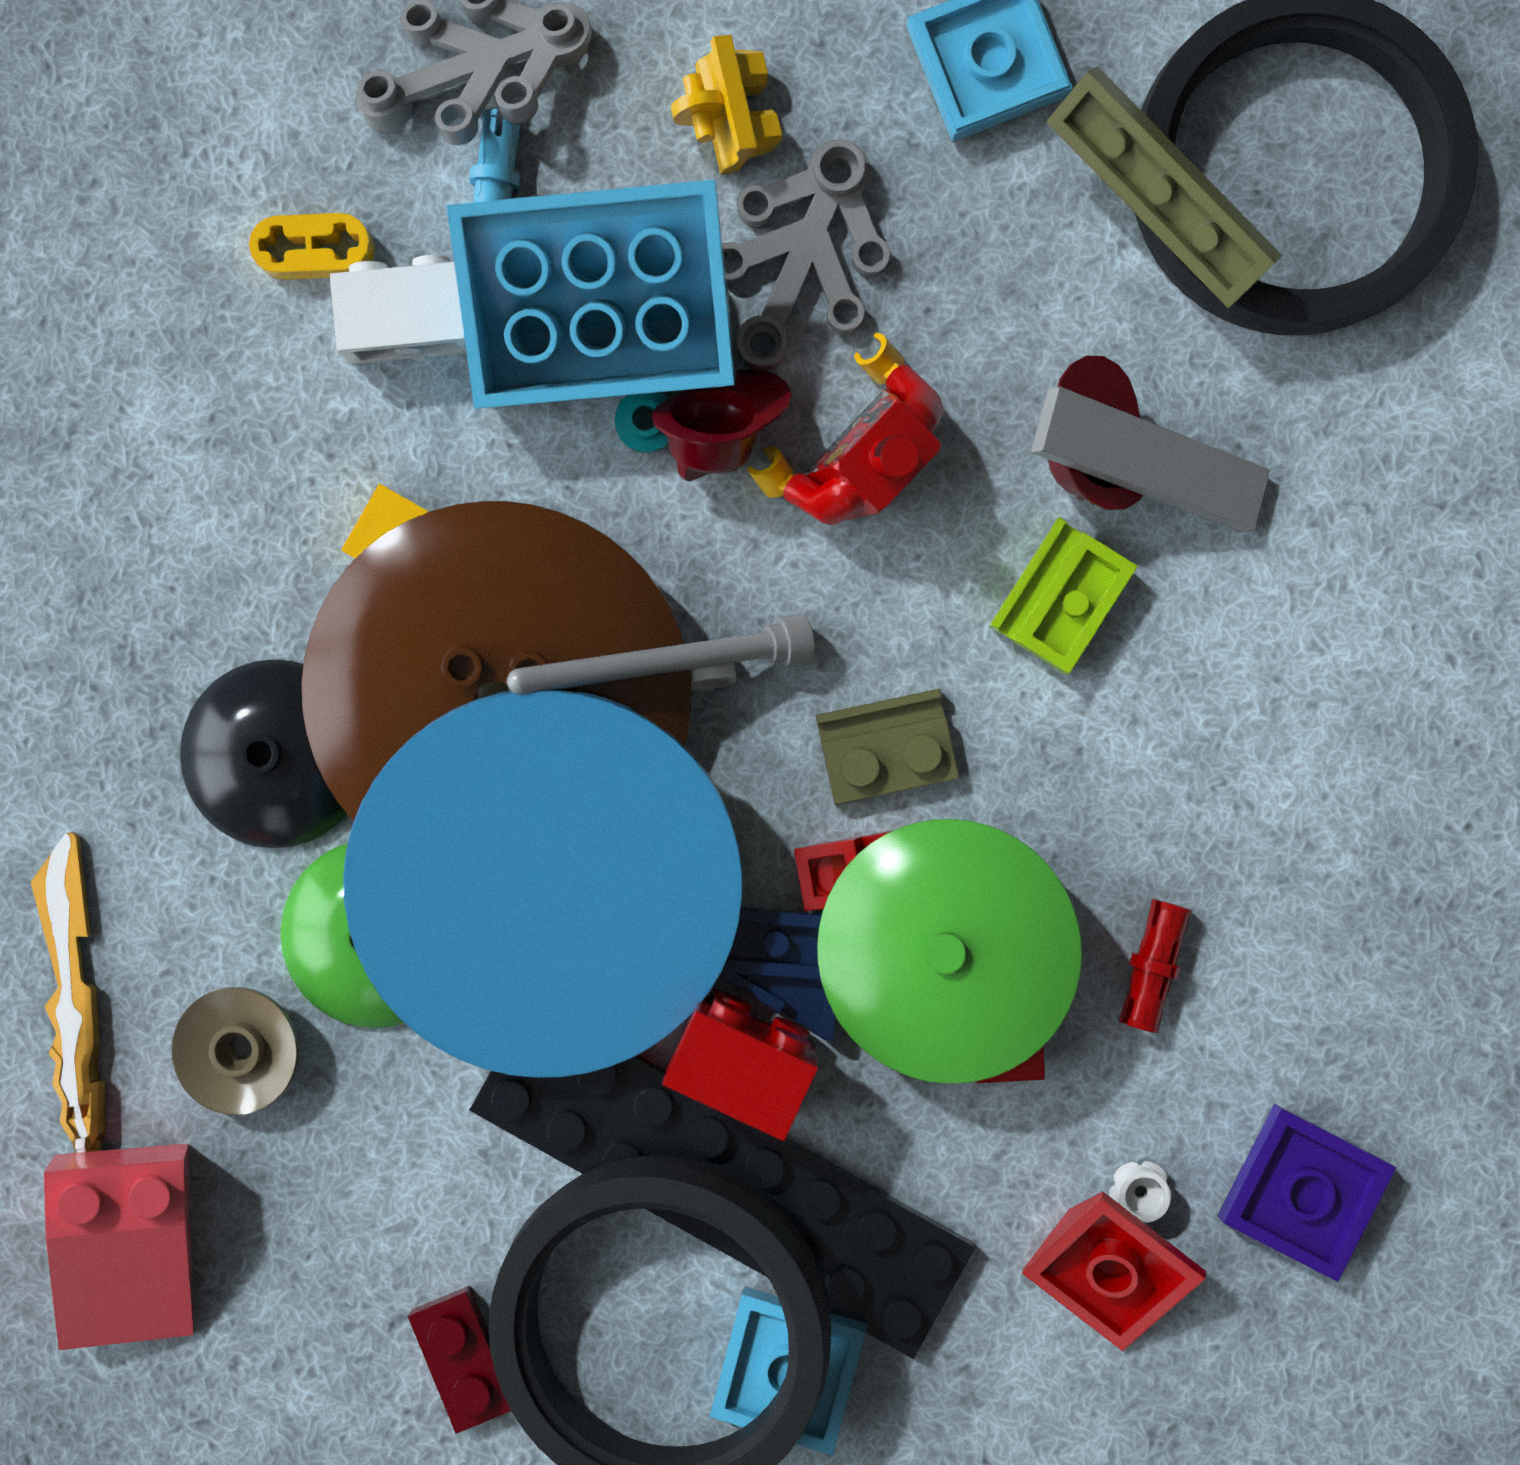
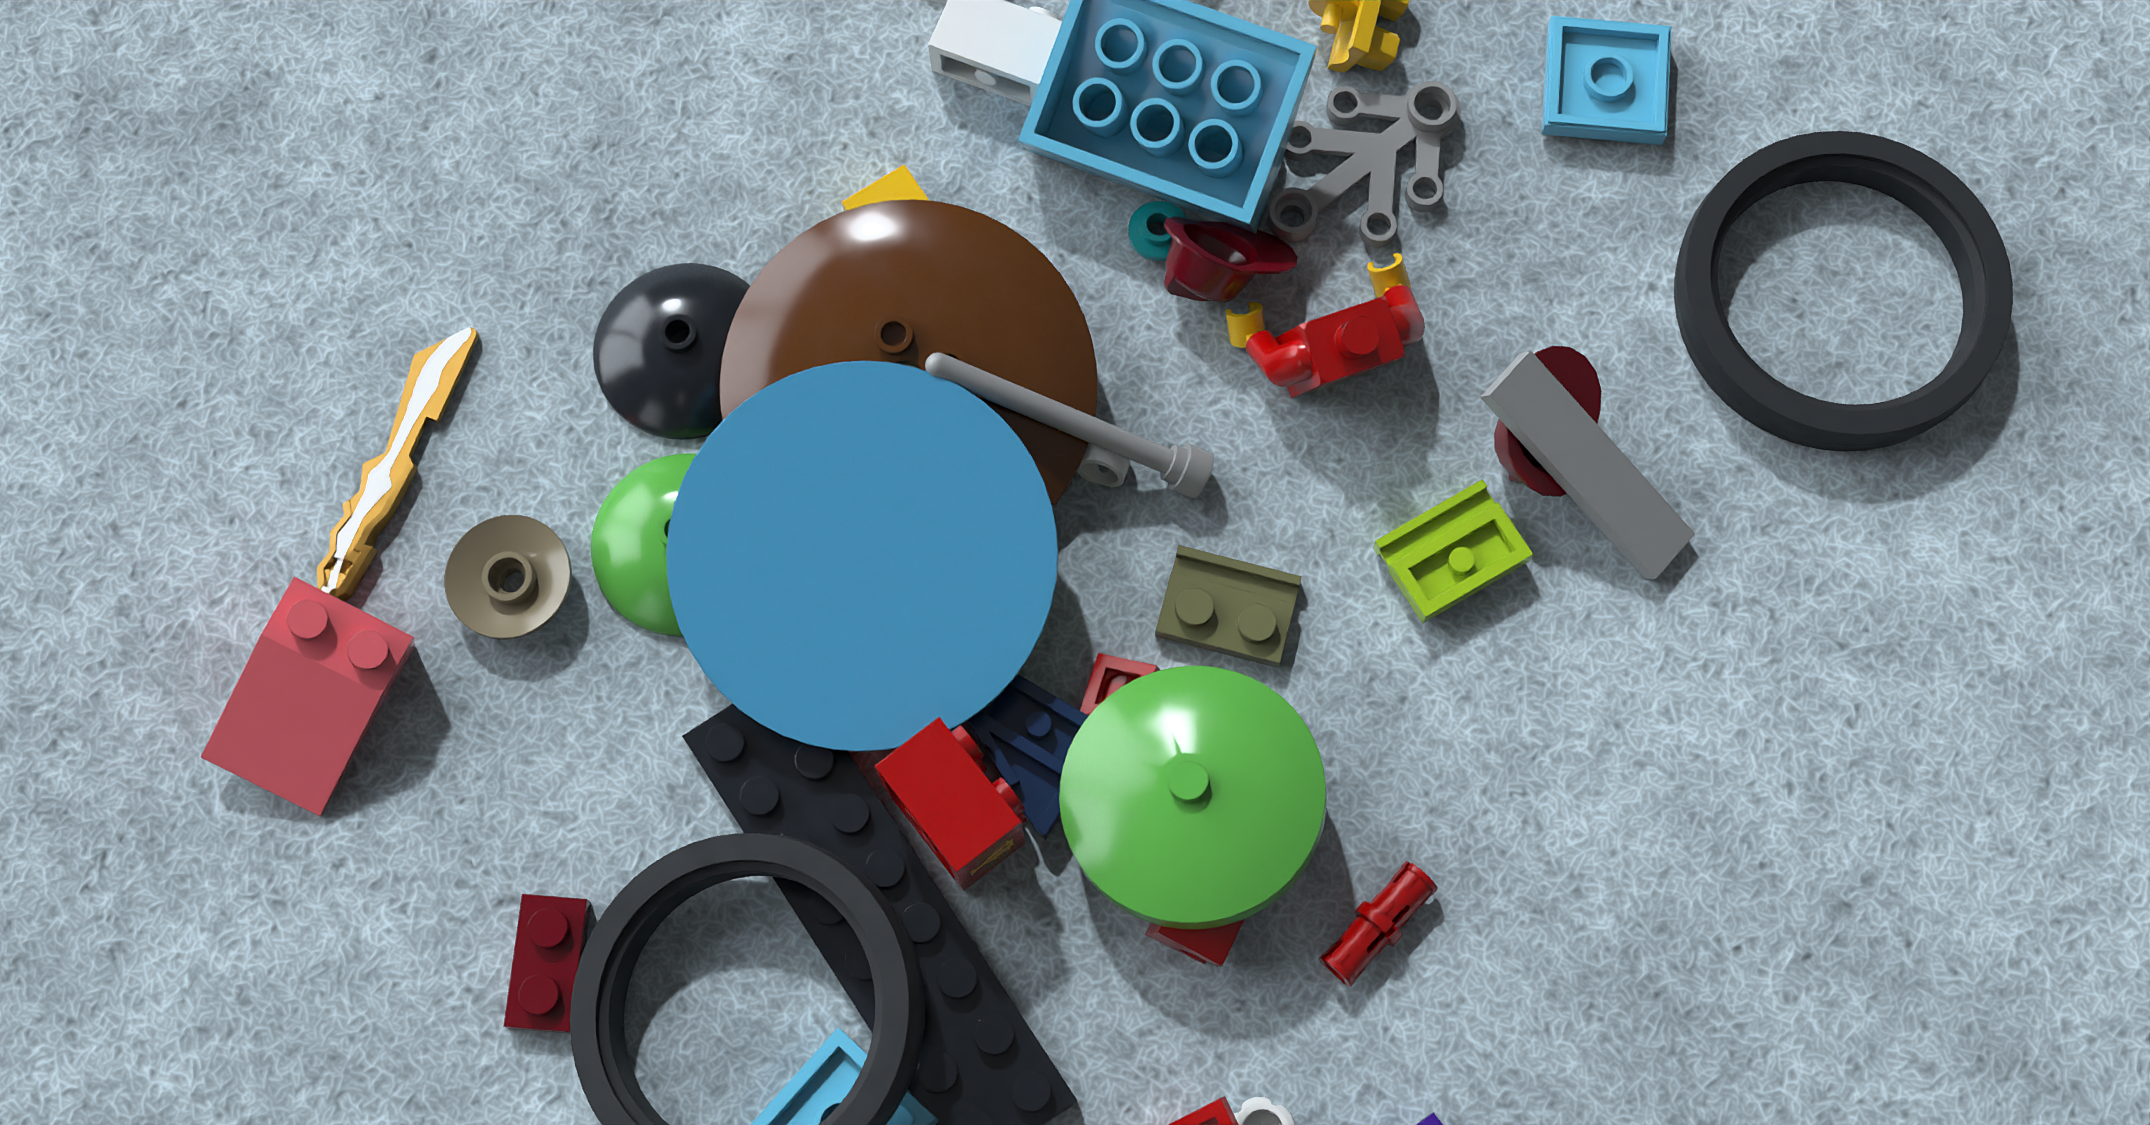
camera: 25 degrees right, 15 degrees down
(1163, 187) = (1703, 241): olive plate -> none

